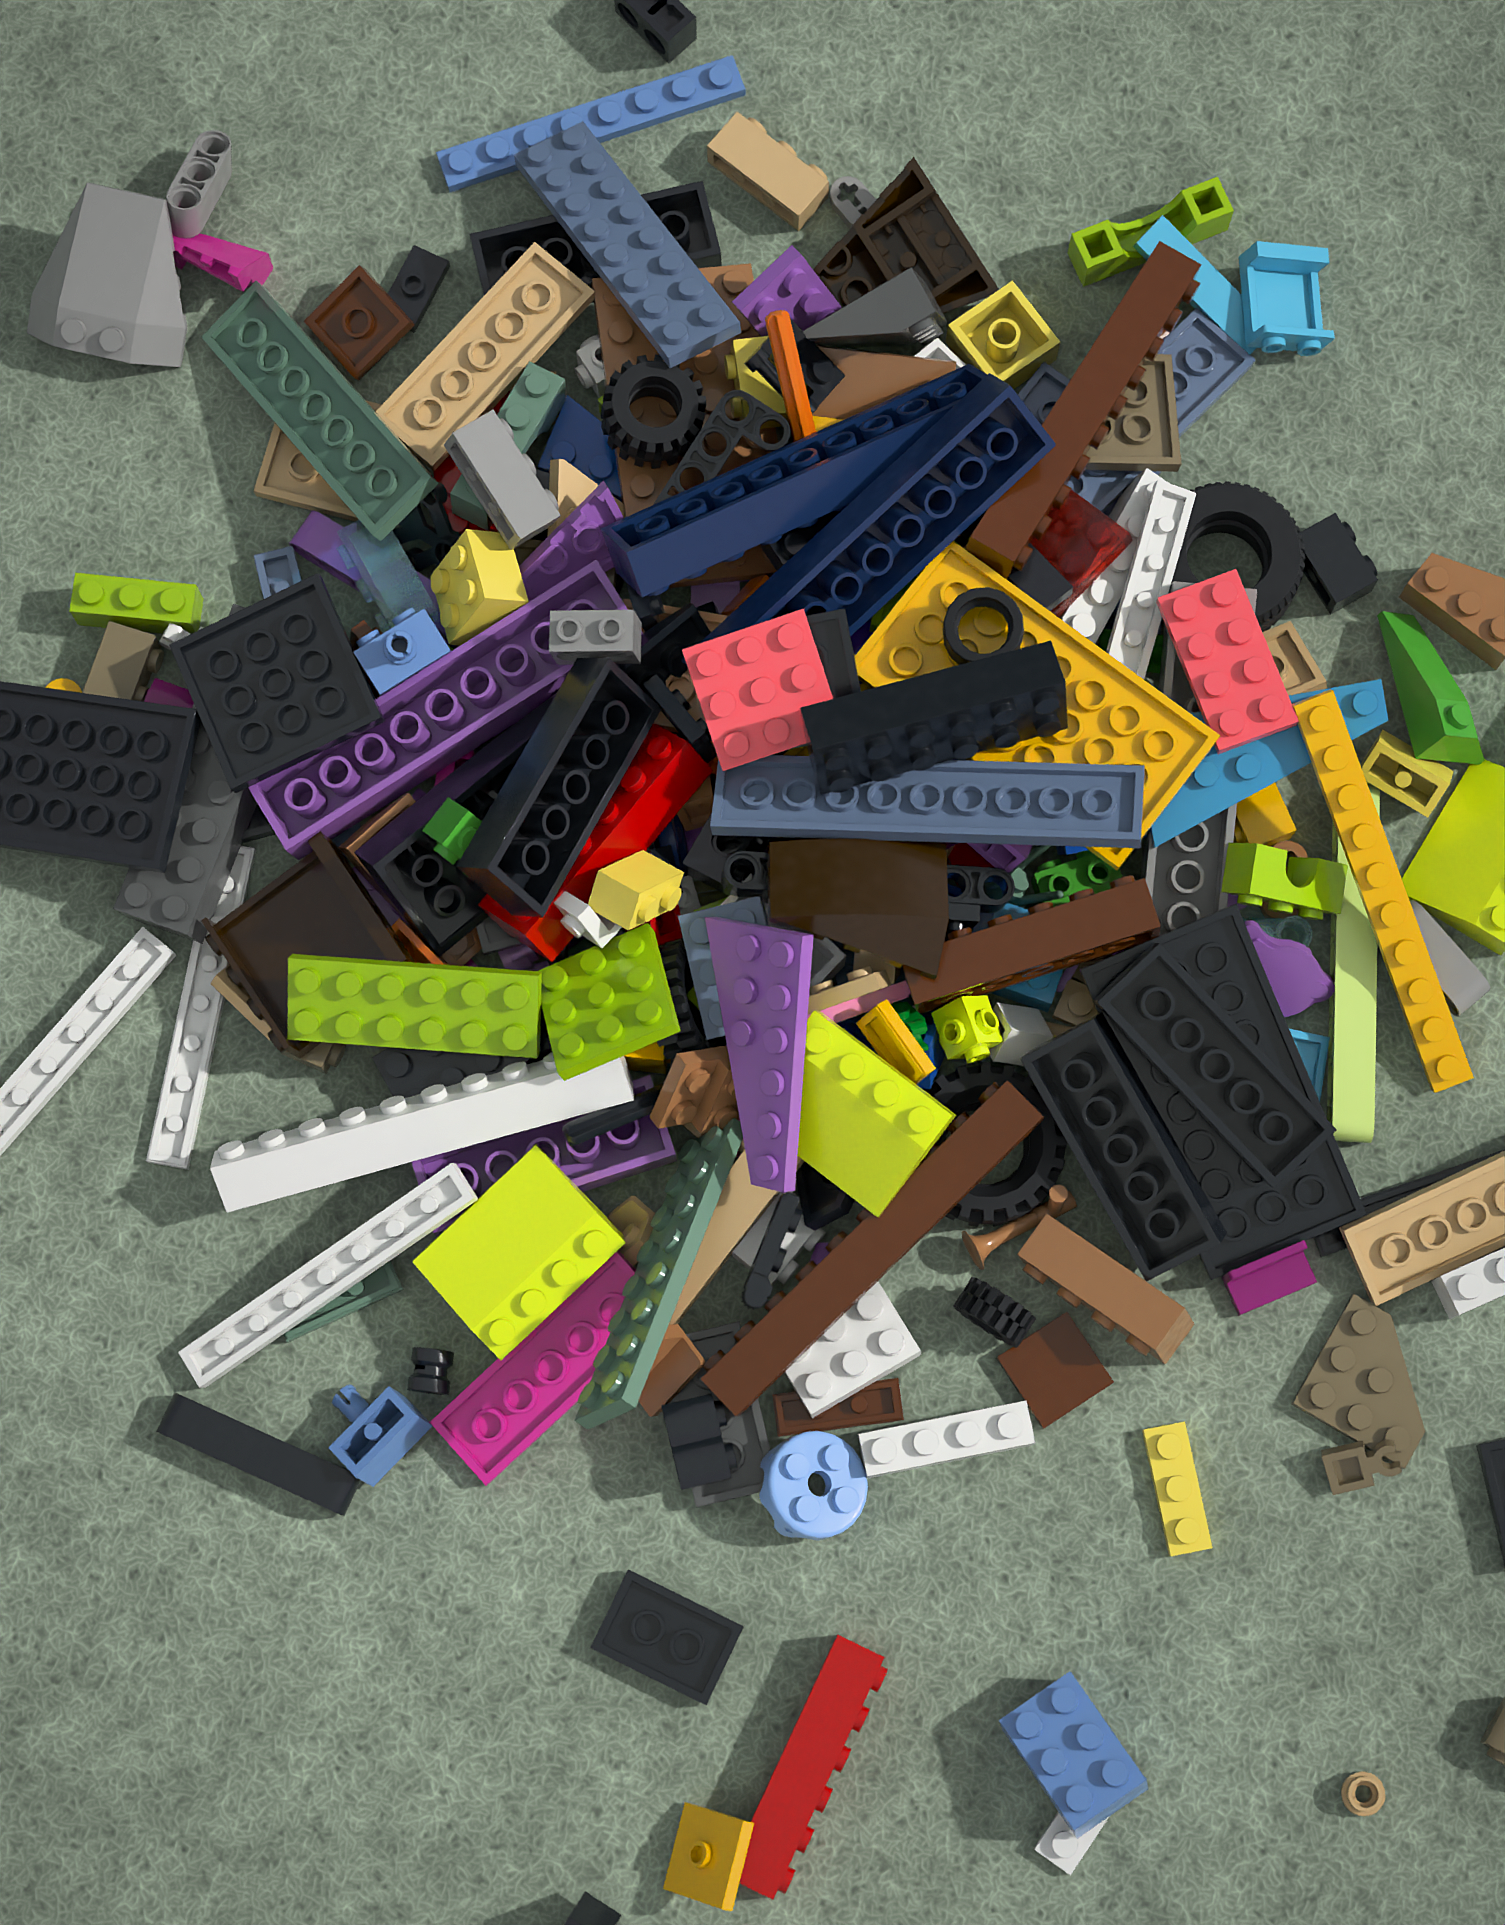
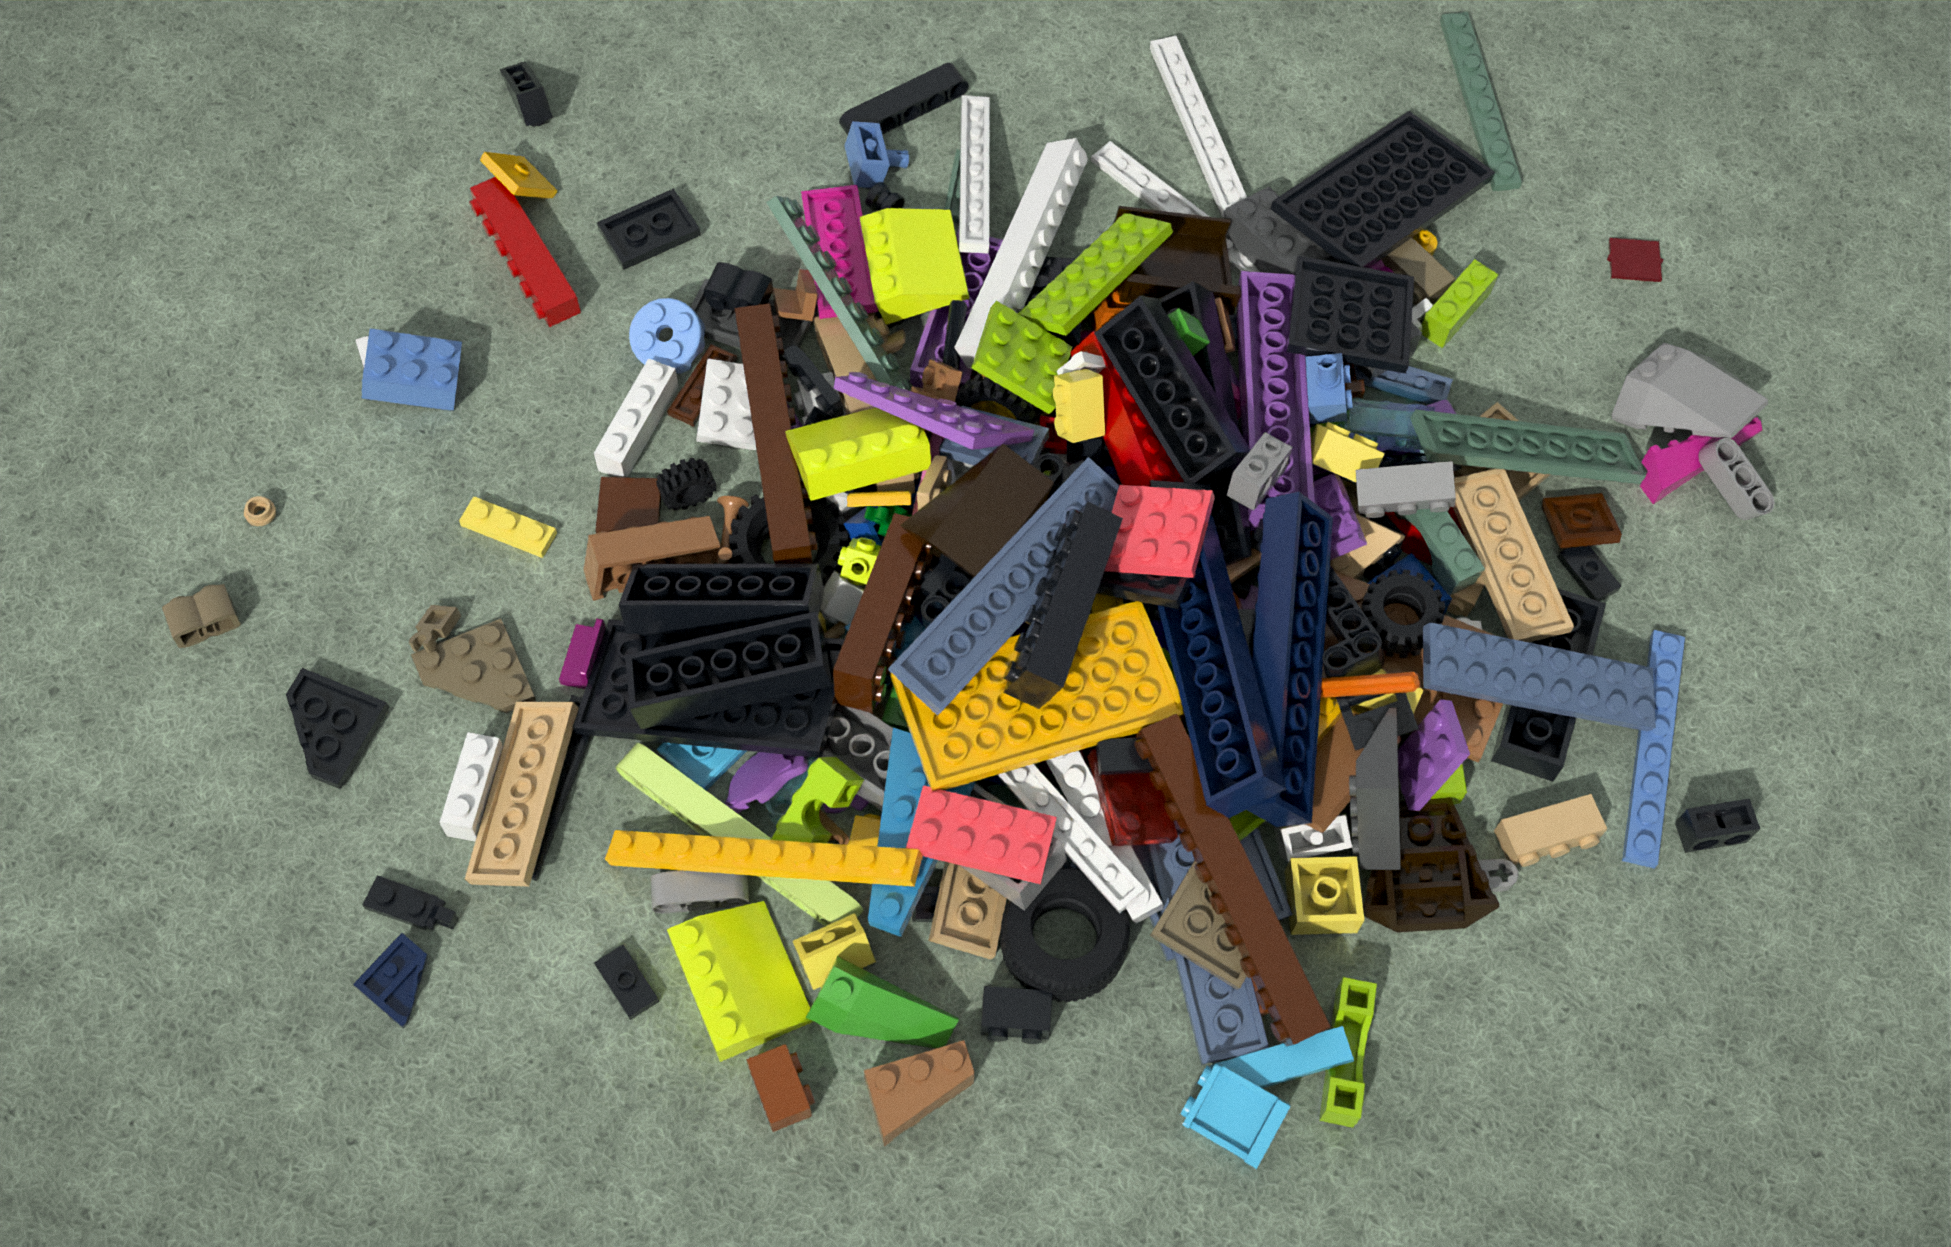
camera: 120 degrees right, 15 degrees down
(981, 598) = (1106, 660): black tyre -> none

